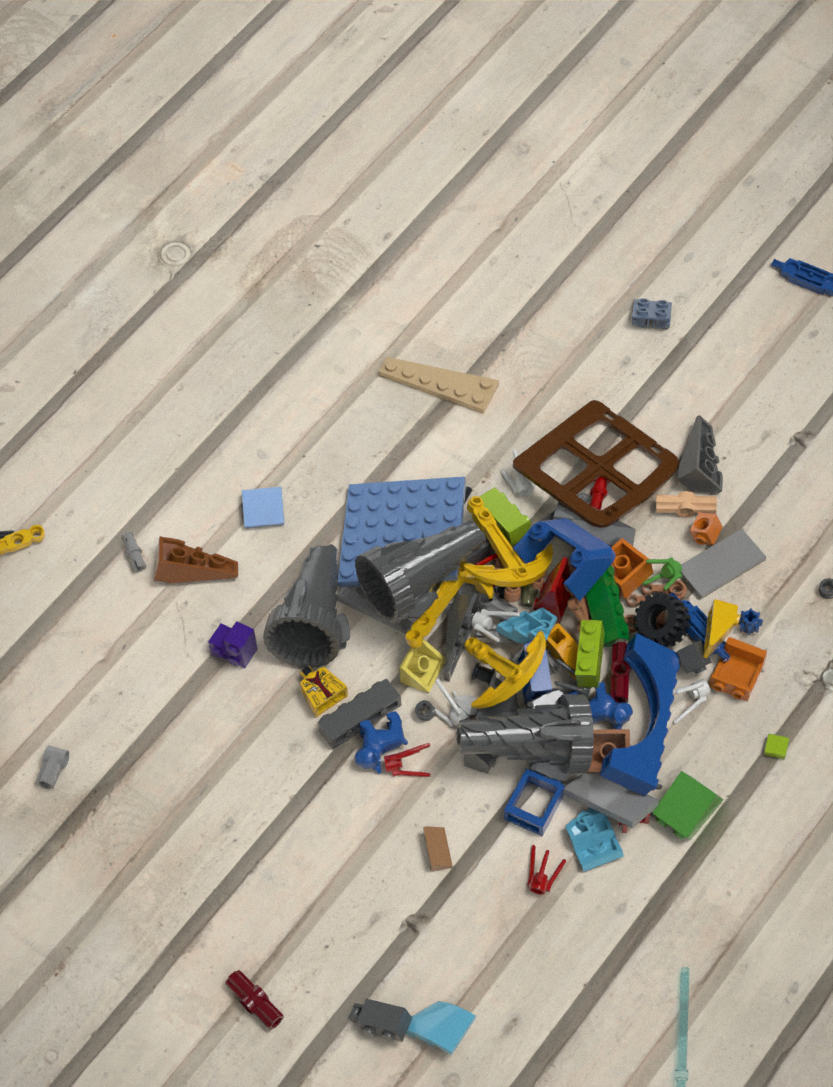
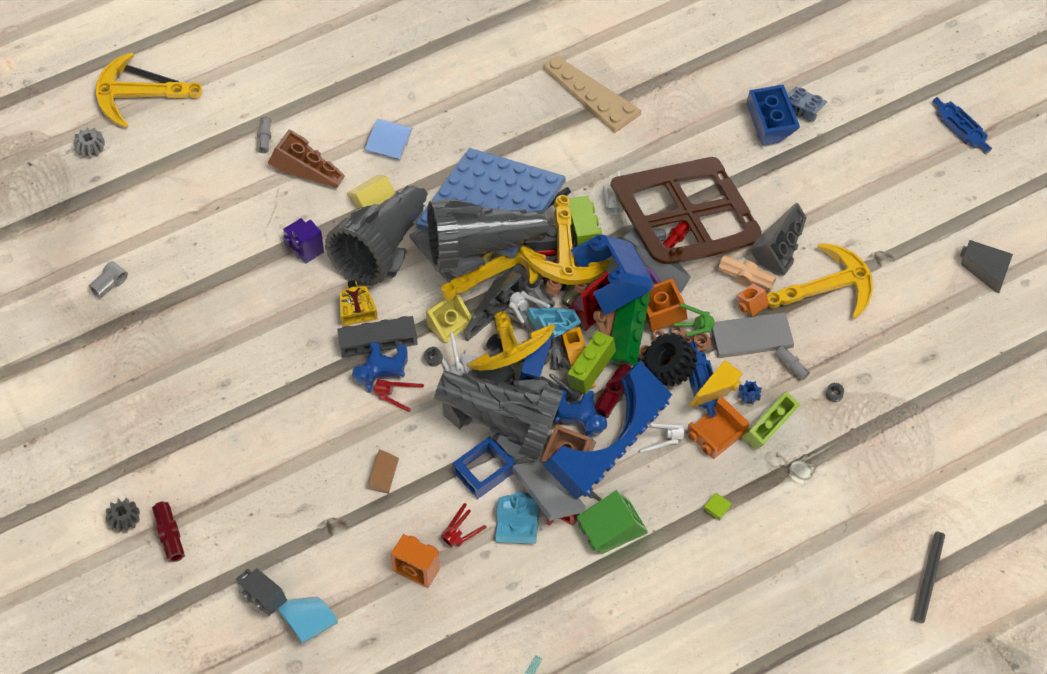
camera: 20 degrees right, 0 degrees up
(190, 1001) = (122, 515): none -> dark grey gear
(277, 570) = (372, 191): none -> light yellow slope
(520, 923) = (415, 560): none -> orange brick
(629, 335) = (772, 114): none -> blue slope
(692, 657) = (680, 402): dark grey brick -> none
(774, 575) = (792, 362): none -> light grey pin
(781, 471) = (854, 267): none -> yellow piece
(785, 641) = (771, 420): none -> lime brick

